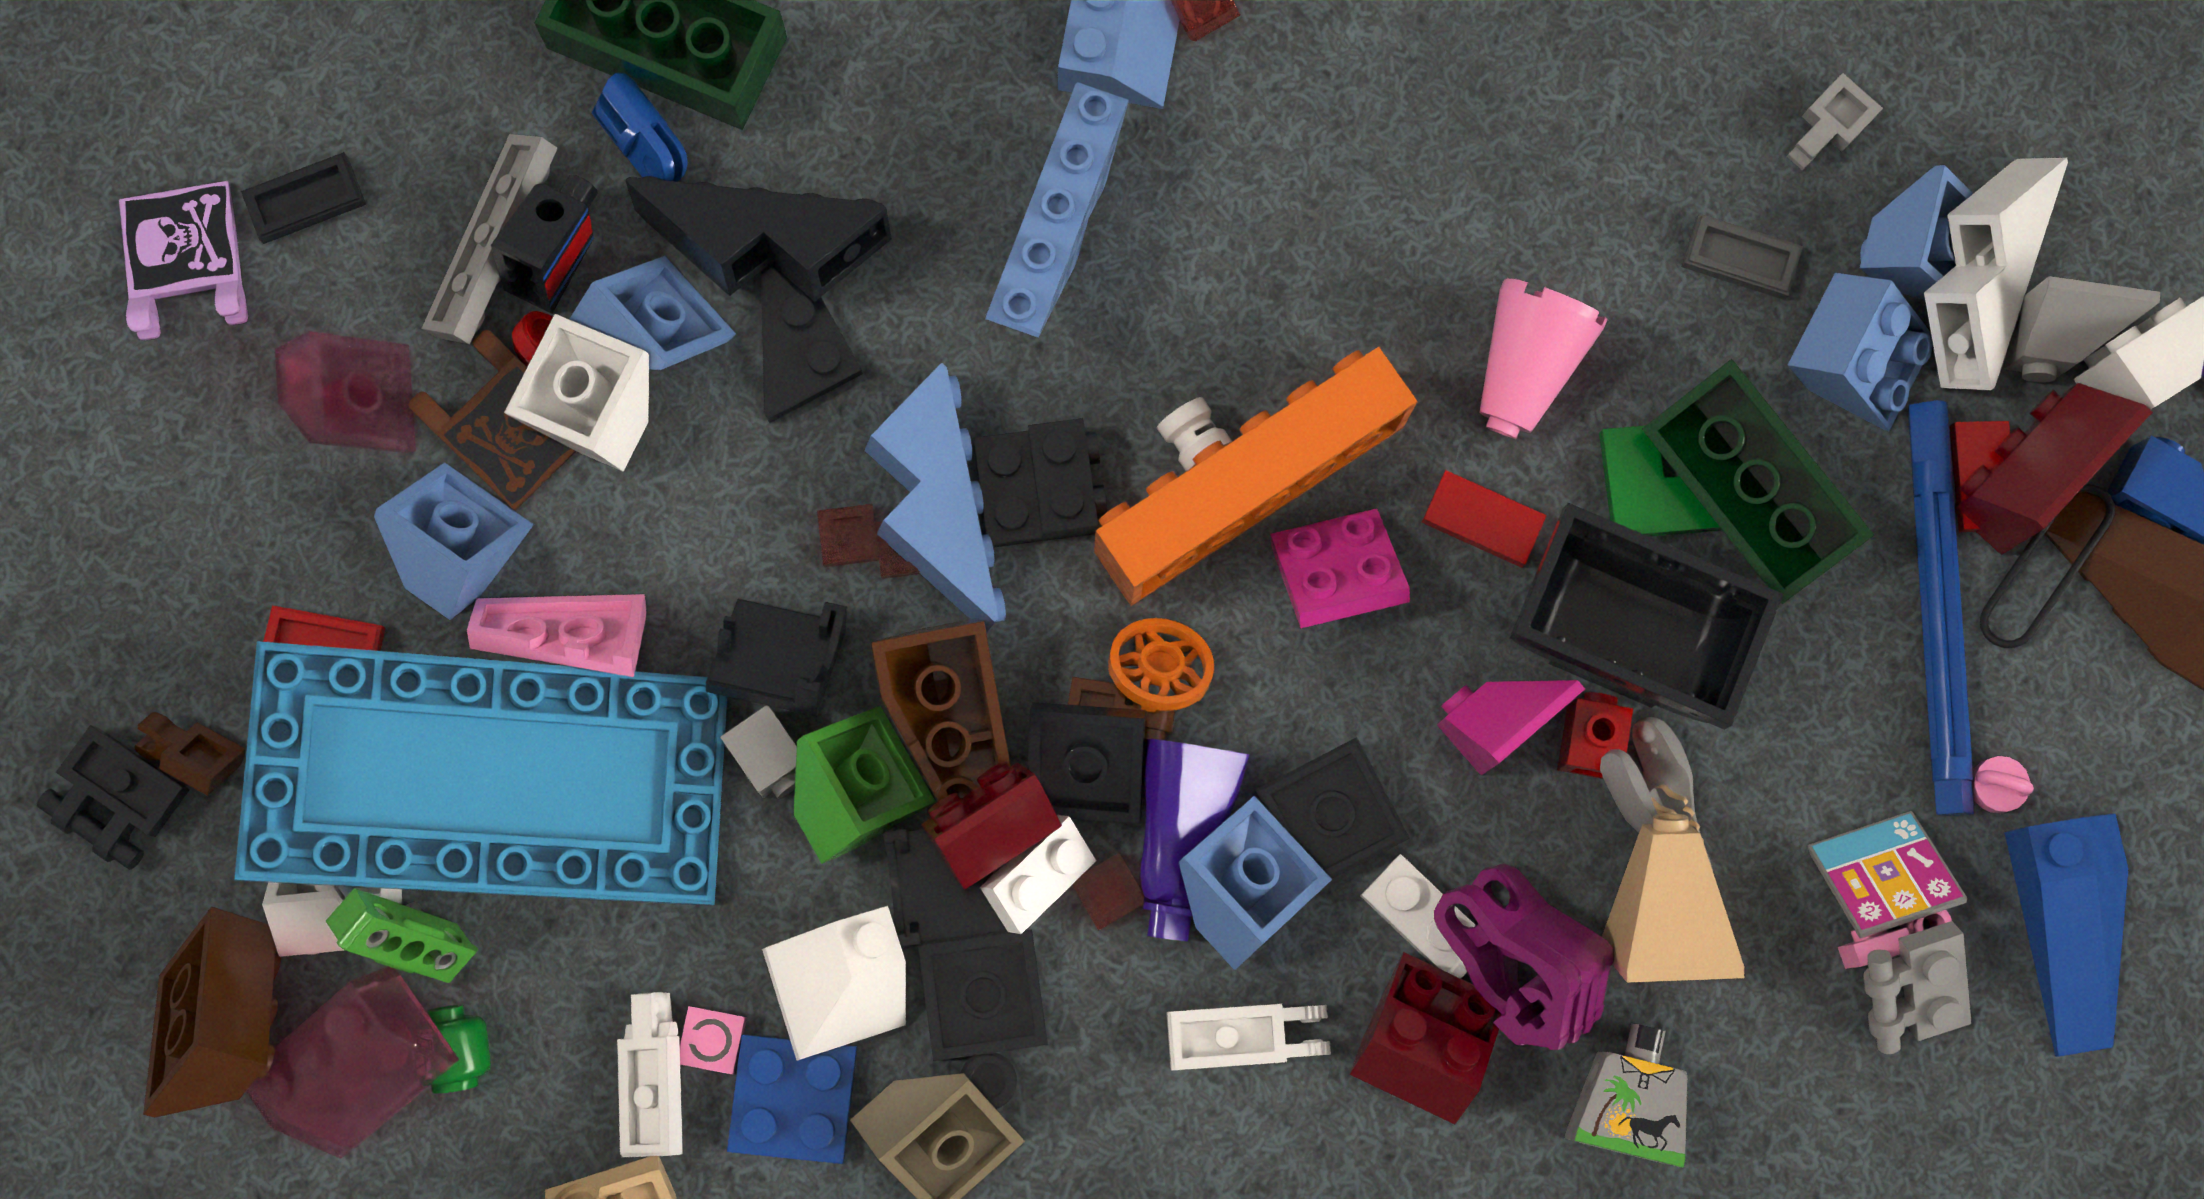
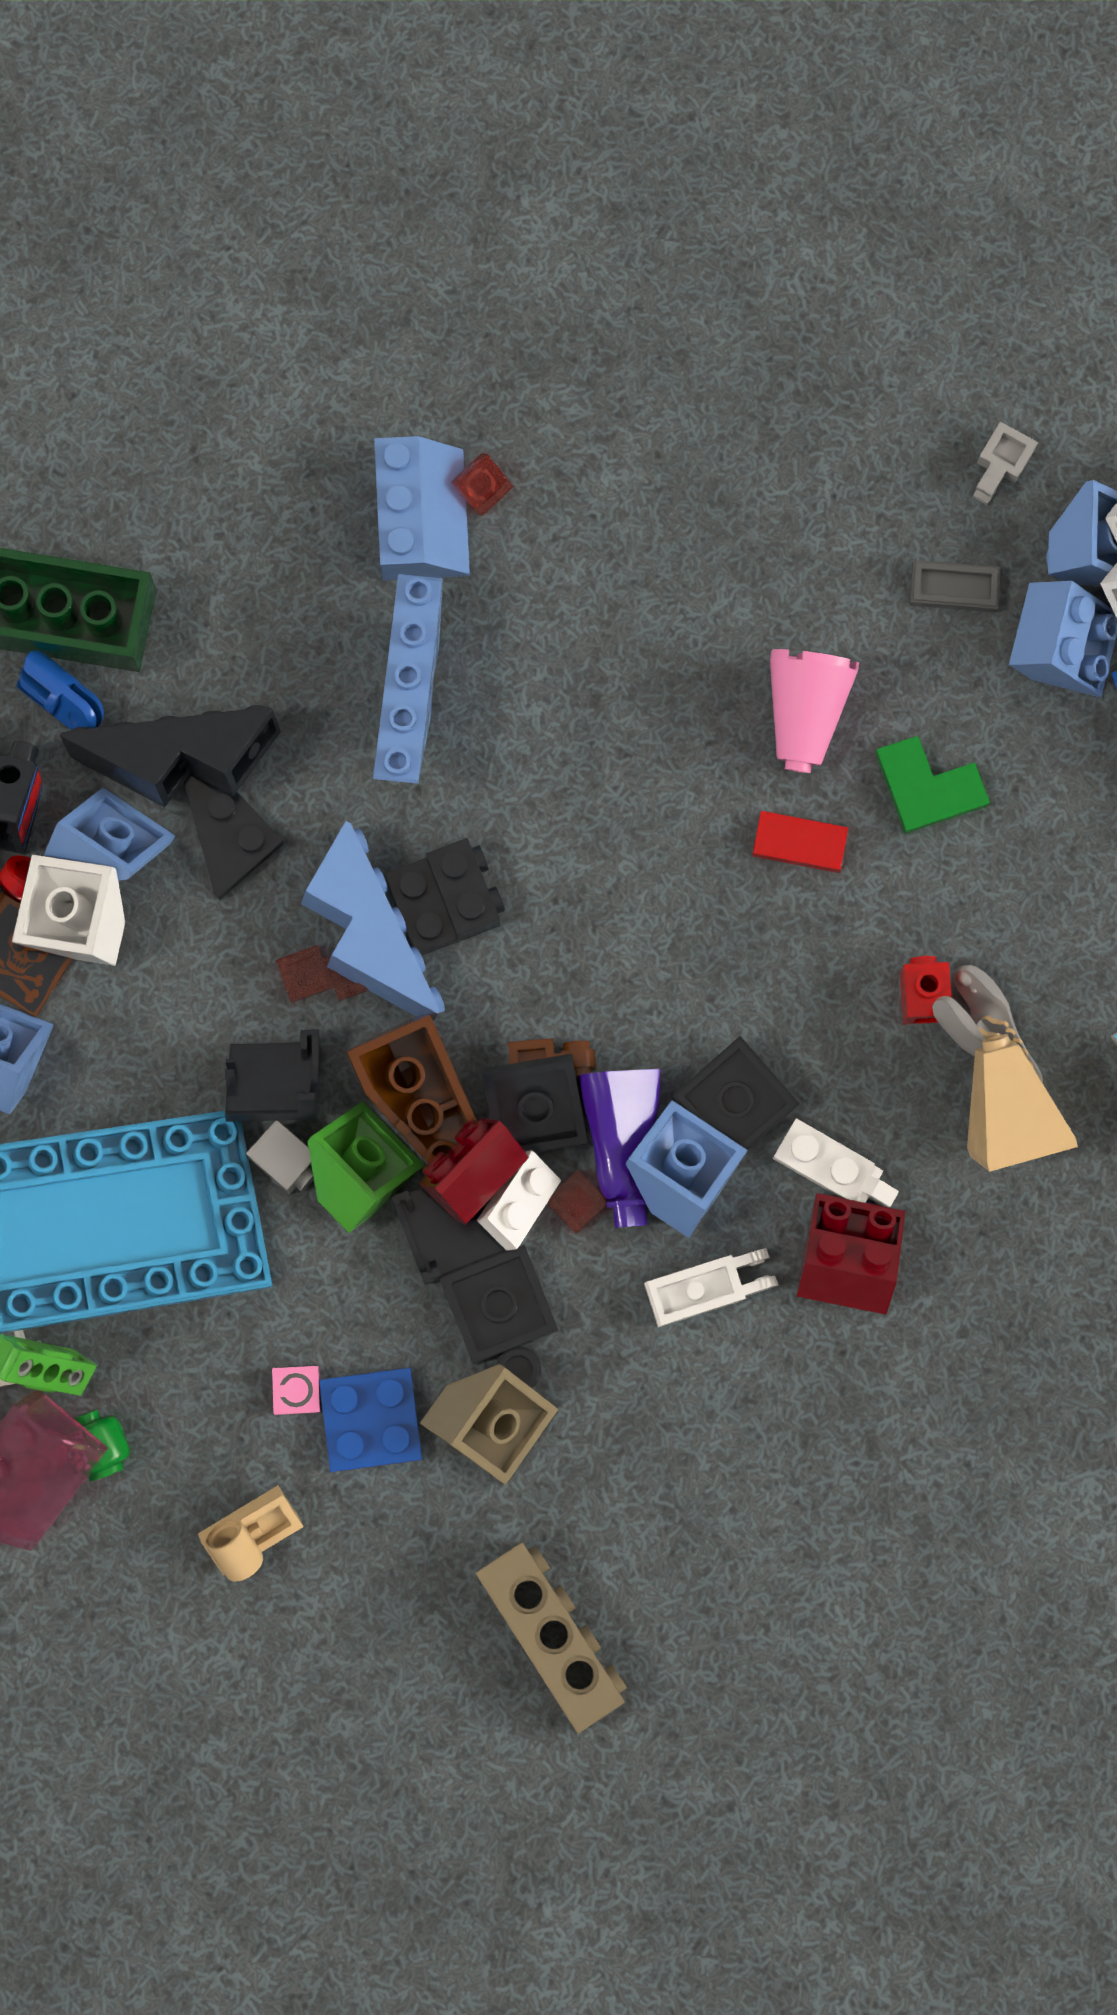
camera: 10 degrees left, 0 degrees up
(564, 630) = (103, 1100): bright pink wing -> none
(650, 1080) = (257, 1431): white hinge -> none
(840, 982) = (386, 1320): white slope -> none
(1160, 664) = (574, 1016): orange wheel -> none
(1191, 430) = (557, 829): white wheel -> none
(1253, 474) = (611, 851): orange brick -> none
(1339, 568) = (696, 907): dark pink plate -> none
(1502, 716) = (849, 992): dark pink slope -> none
(1564, 953) = (942, 1164): magenta piece -> none
(1634, 1102) = (1020, 1265): light grey torso -> none
(1645, 618) = (939, 890): black container -> none
(1757, 481) = (1005, 761): dark green slope -> none

